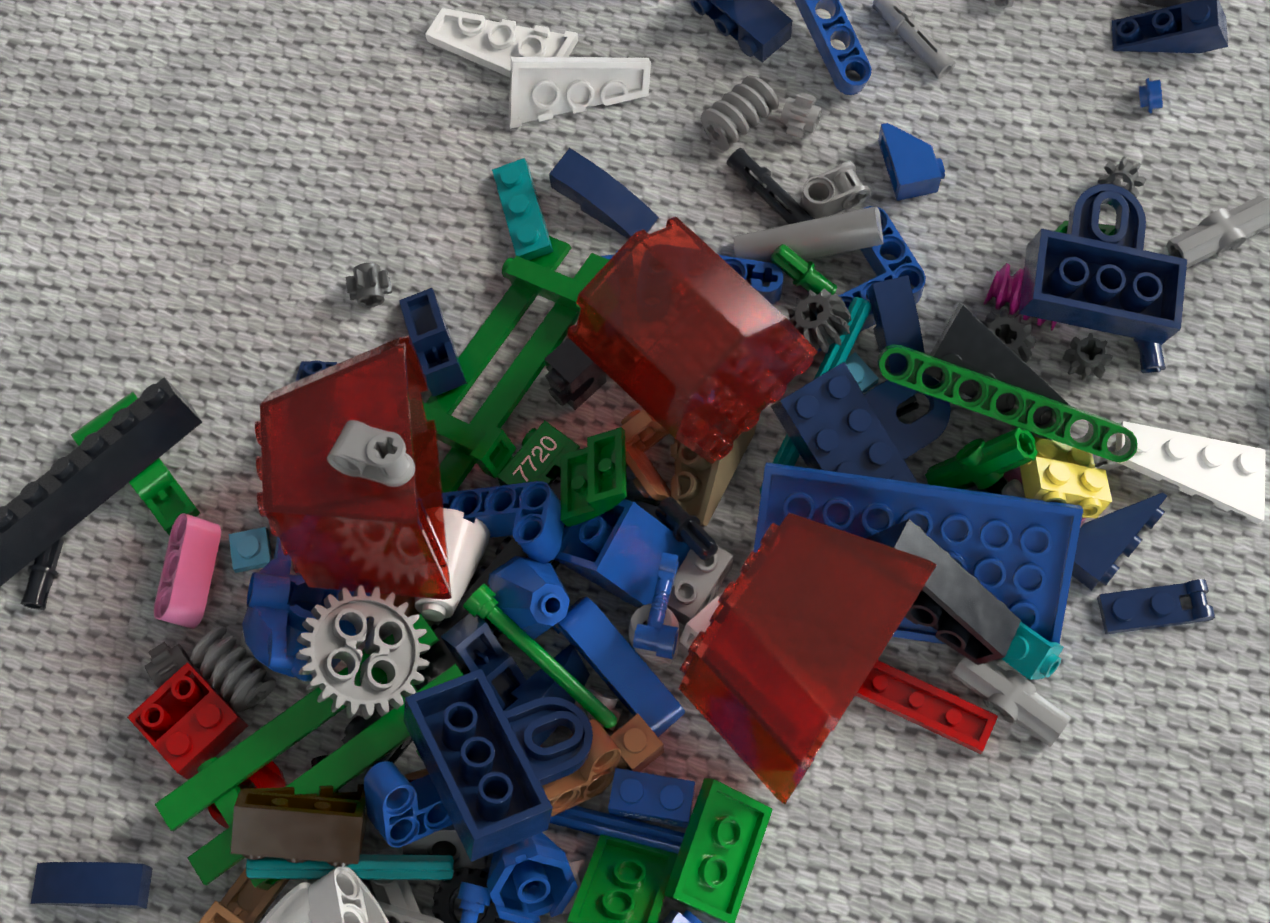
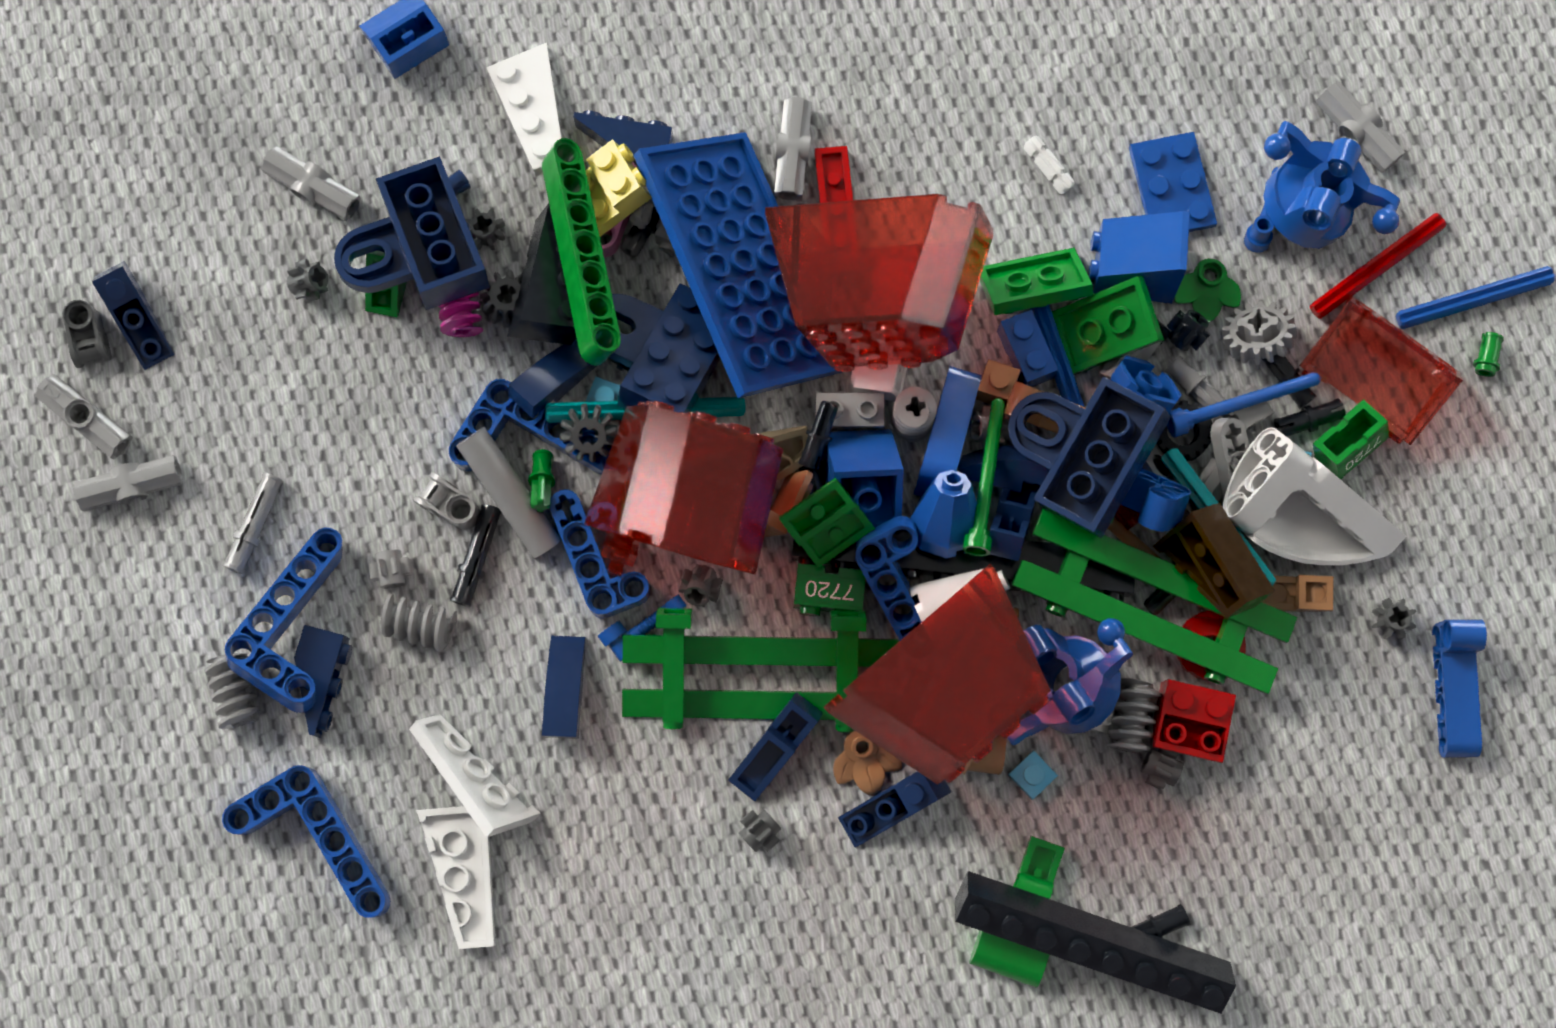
camera: 130 degrees left, 10 degrees up
(92, 884) = (1347, 711): dark blue slope -> none
(187, 571) = (1083, 806): bright pink beam -> none
(329, 642) = (1089, 620): light grey gear -> none
(371, 455) = (962, 639): light grey piece -> none
(522, 210) = (613, 750): teal plate -> none
(572, 375) = (739, 605): black brick -> none
(656, 635) = (923, 398): blue brick -> none
(909, 163) = (386, 456): blue slope -> none
(954, 600) = (761, 184): black wedge -> none
(984, 462) = (633, 251): green piece -> none
(1033, 654) = (756, 149): teal bracket -> none
(1151, 95) = (206, 299): blue plate -> none
(1154, 607) = (661, 86): dark blue plate -> none

